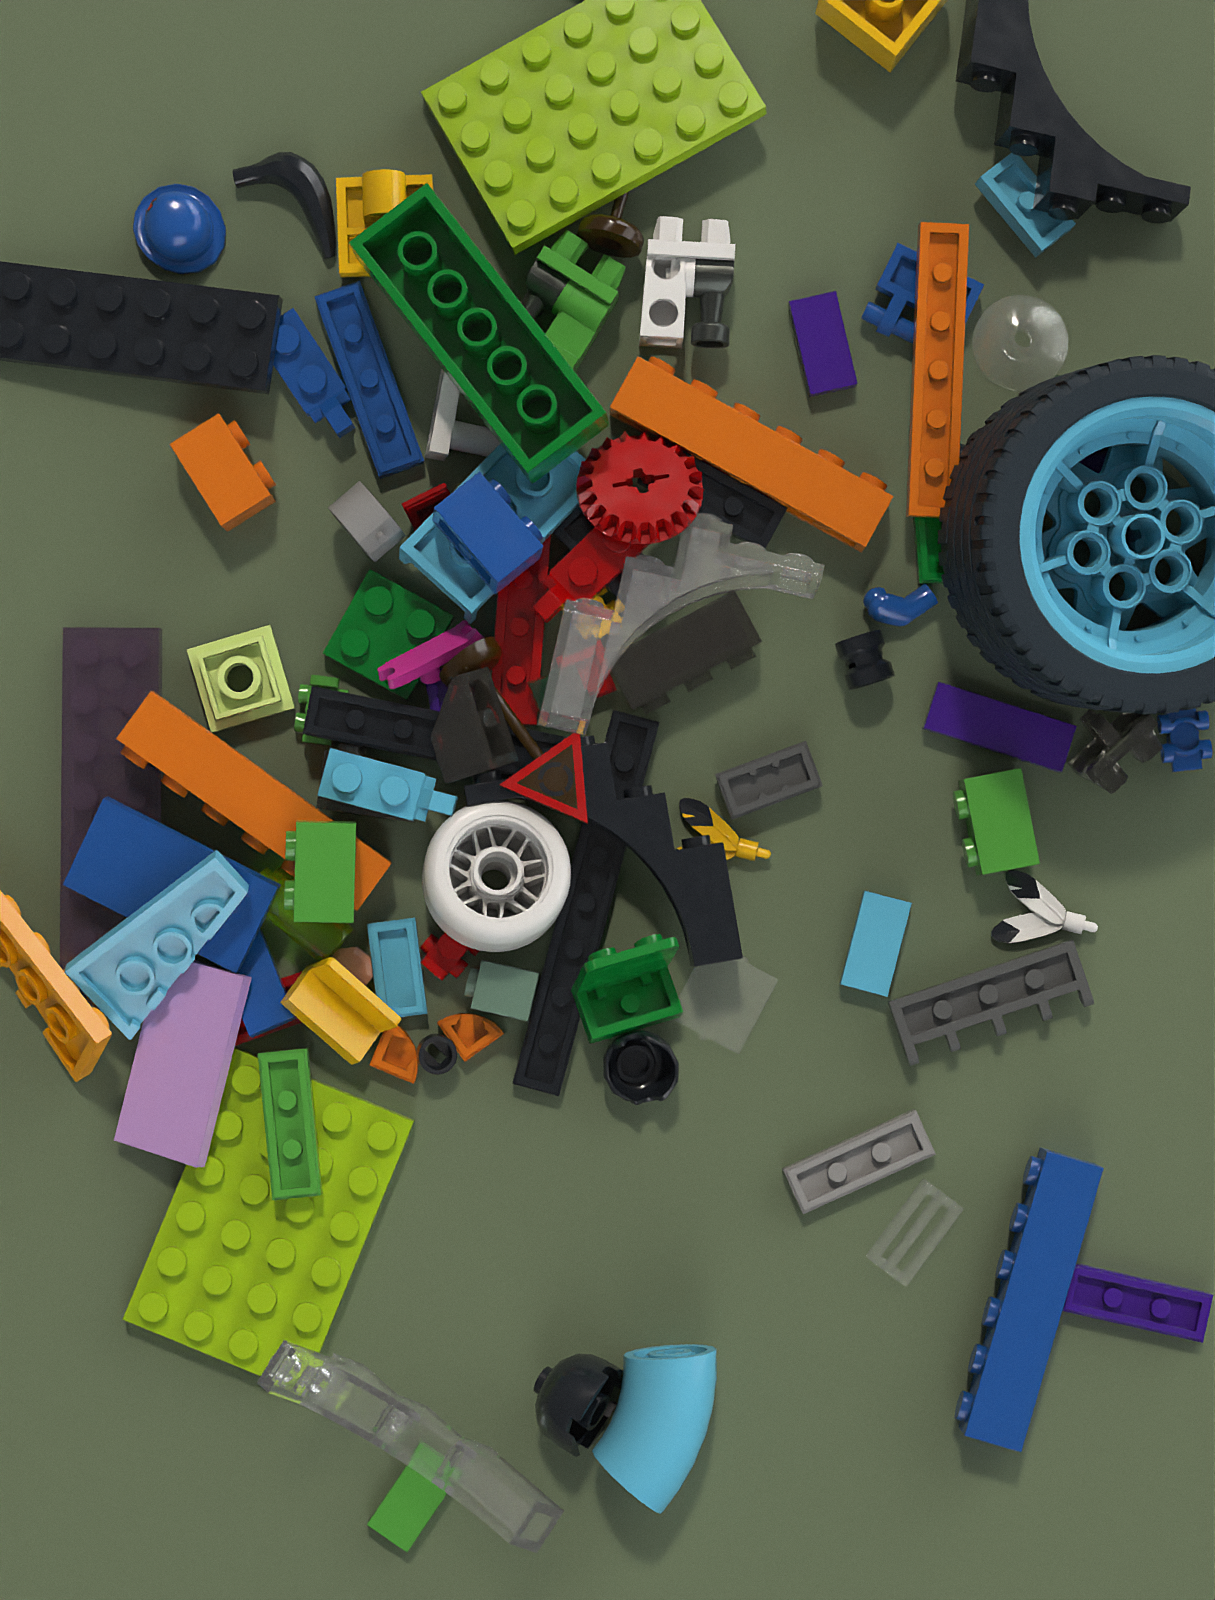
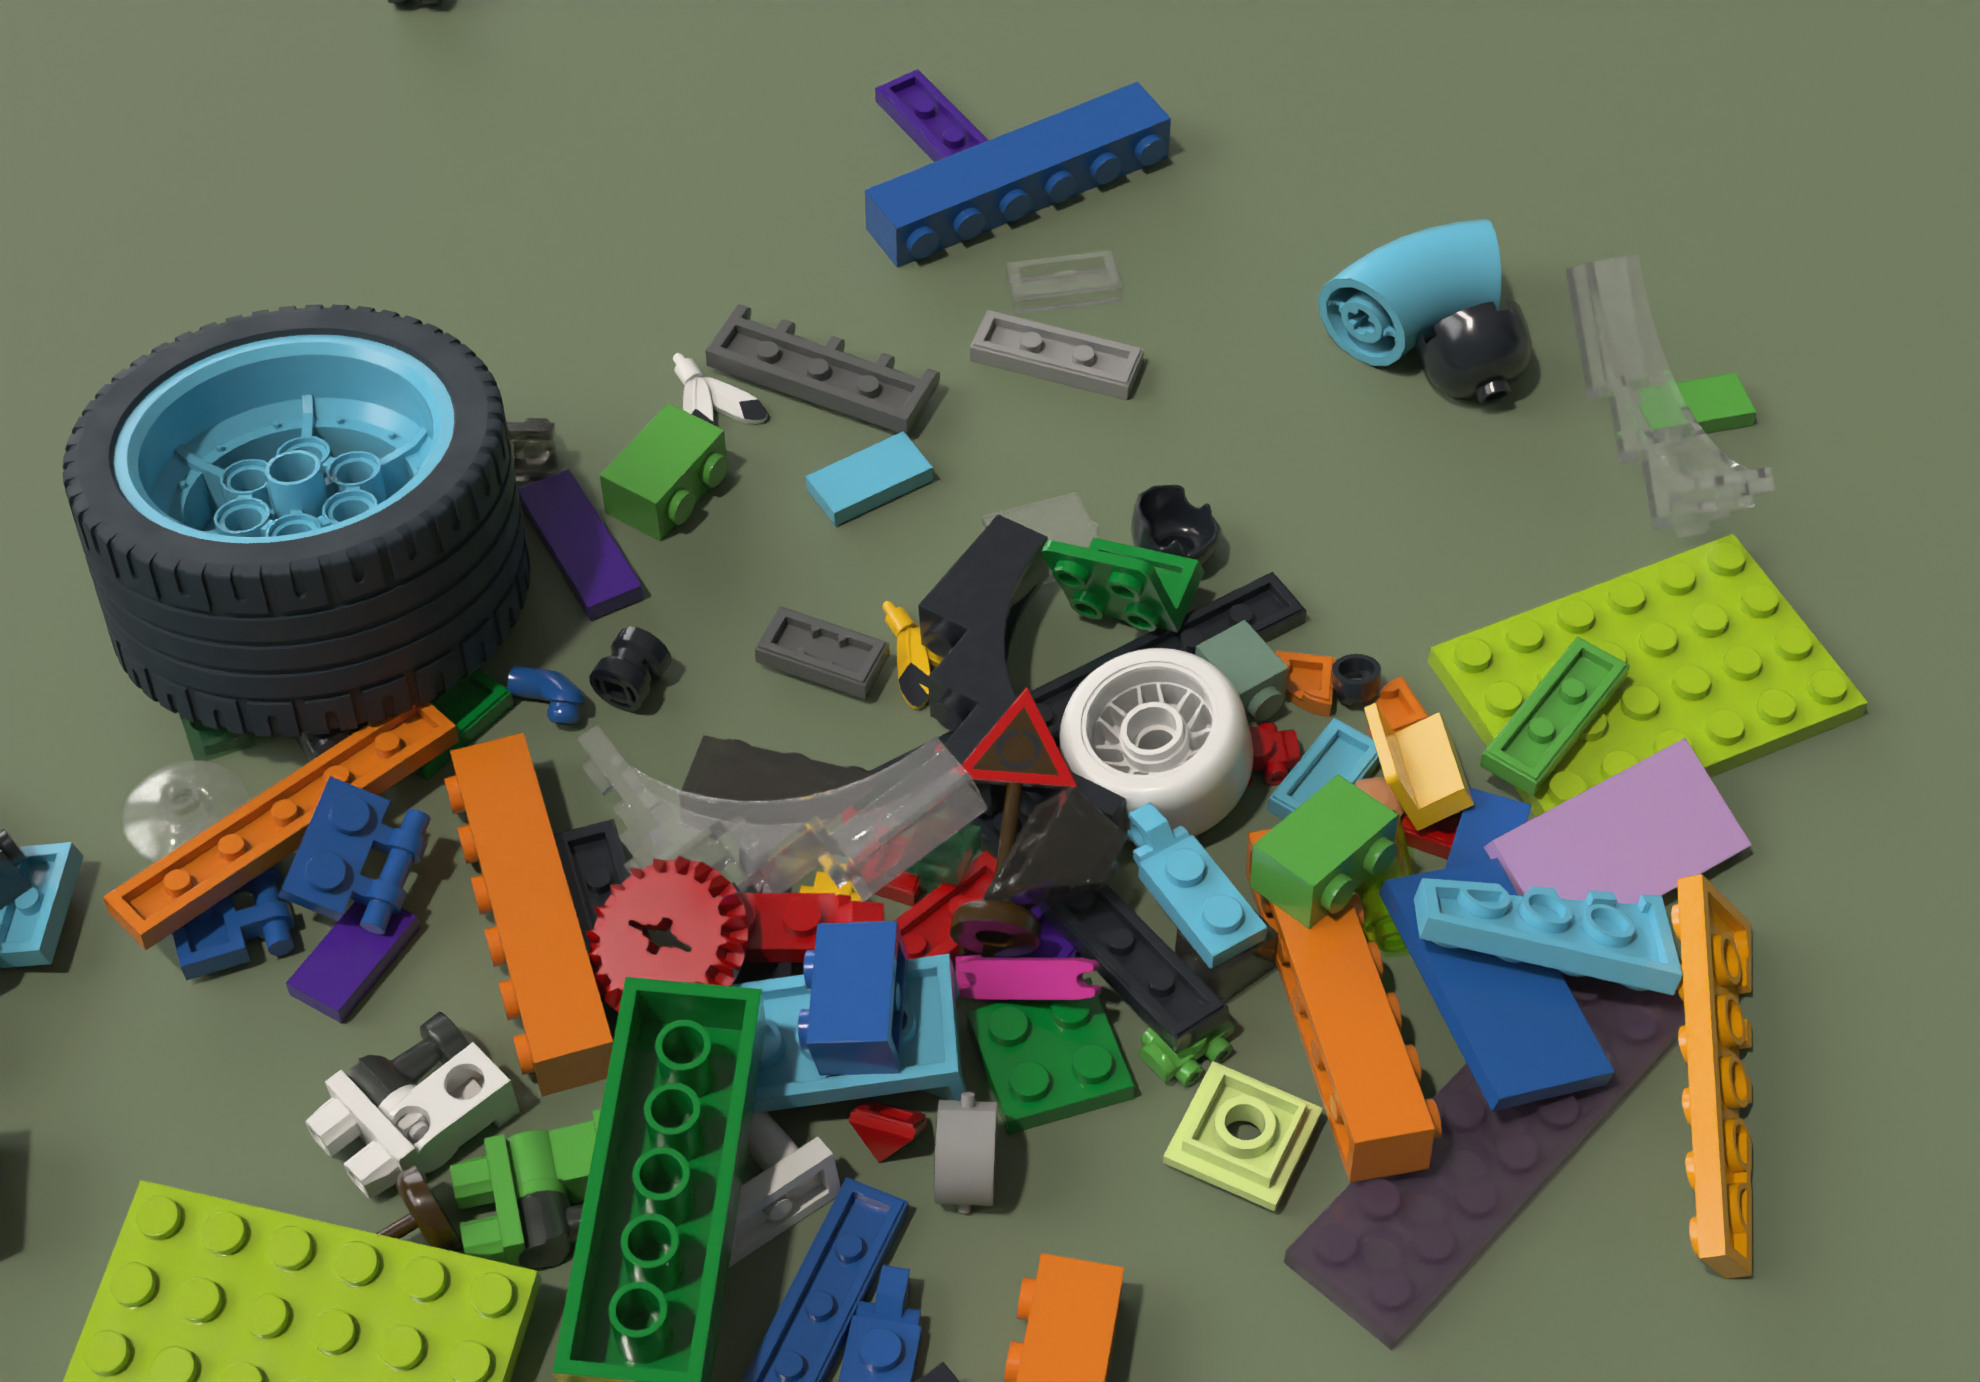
camera: 135 degrees left, 35 degrees down
(884, 376) = (335, 850): none -> blue plate

